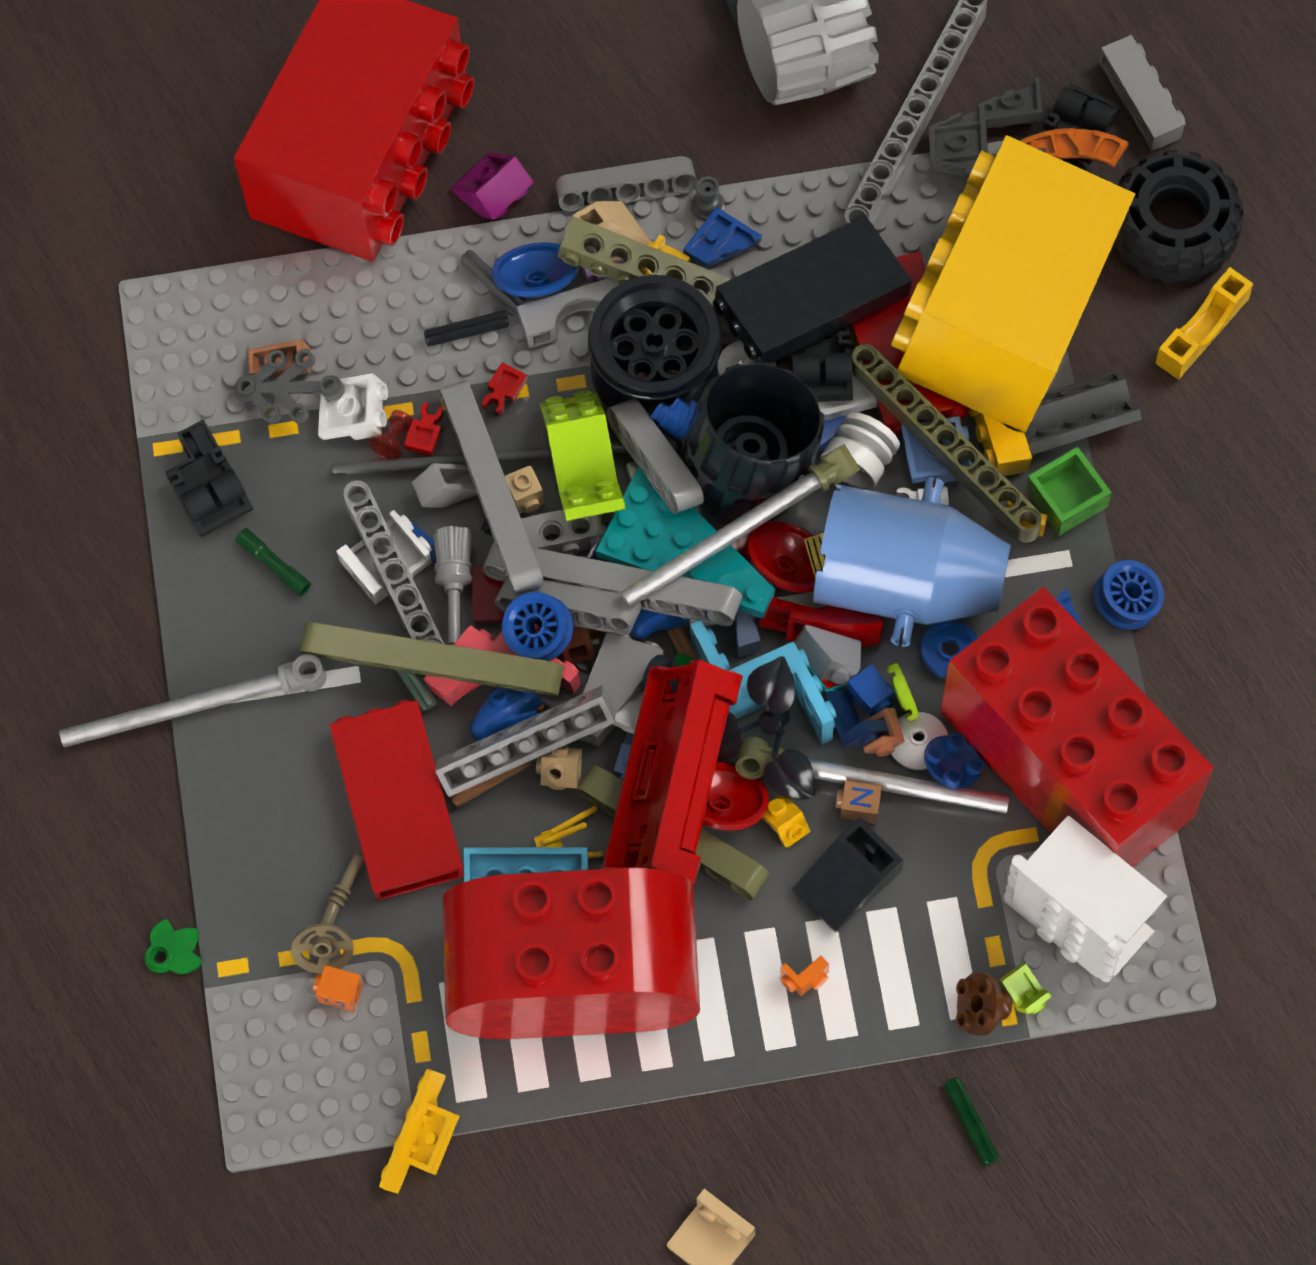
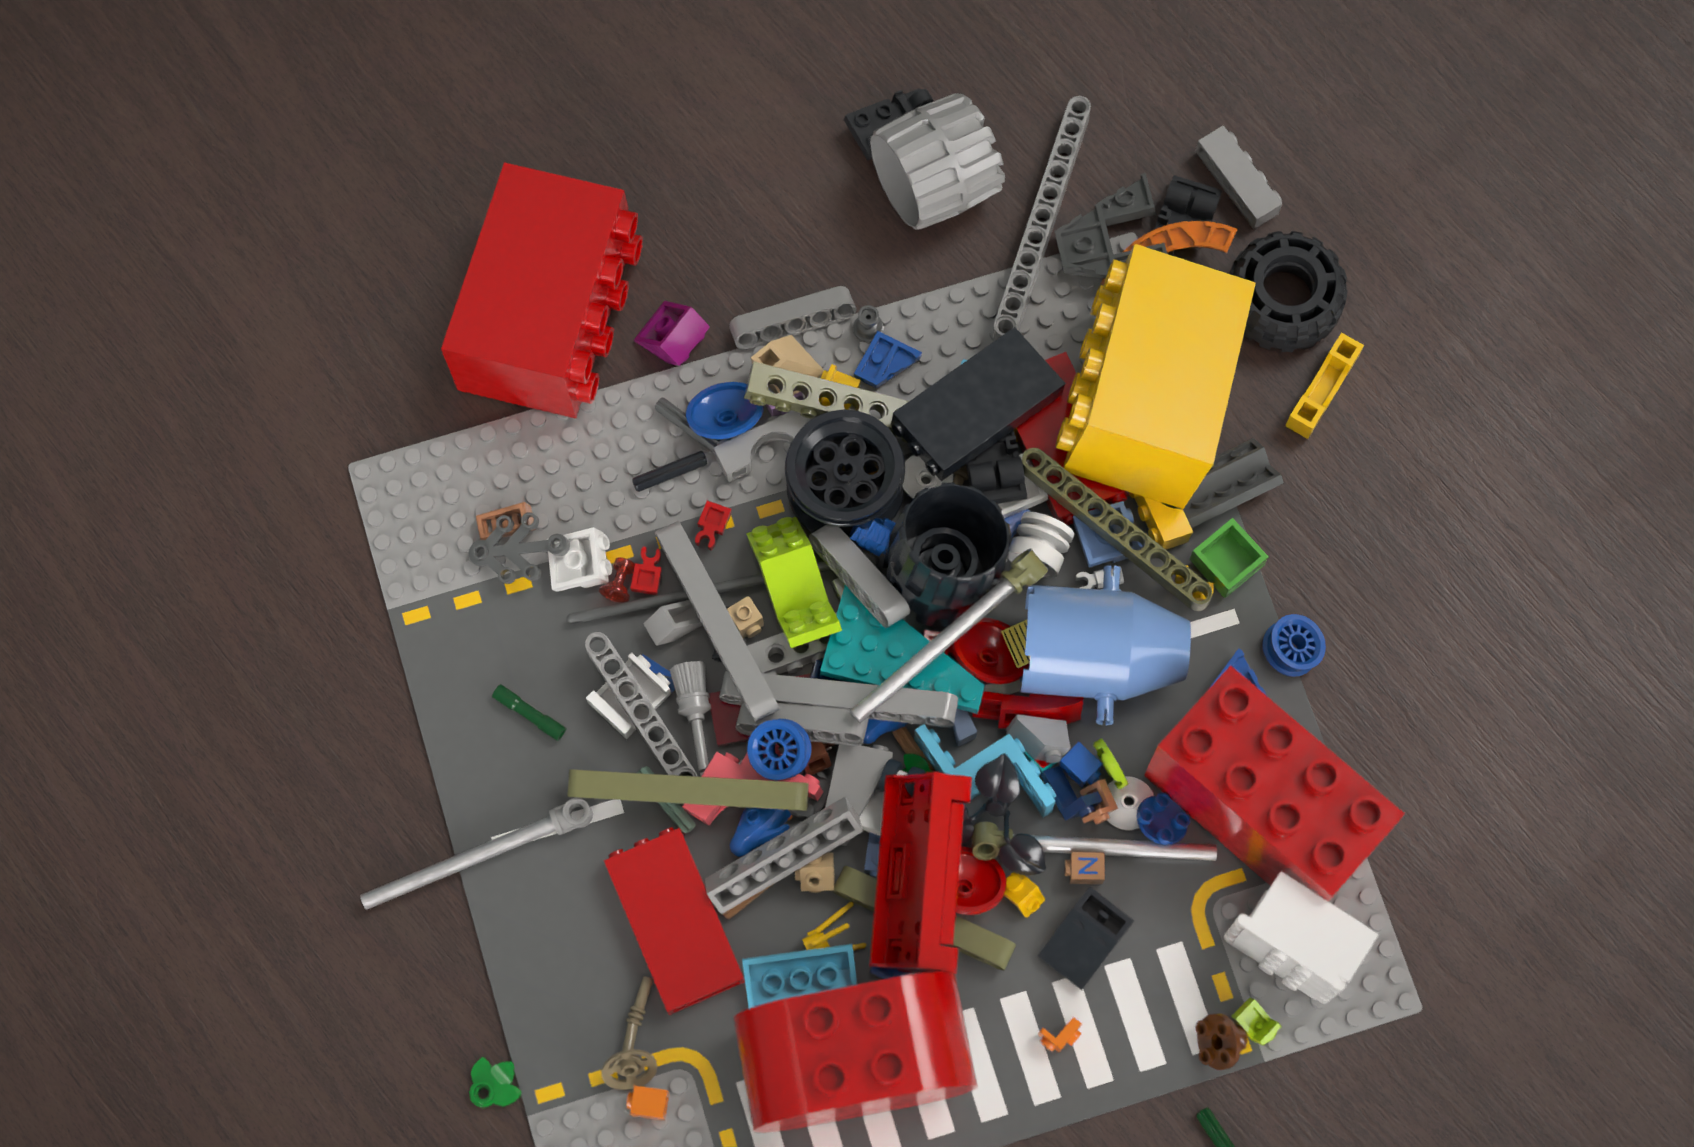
camera: 10 degrees left, 5 degrees up
(207, 482) = (458, 648): black plate -> none
(939, 635) = (1144, 731): blue tile -> none

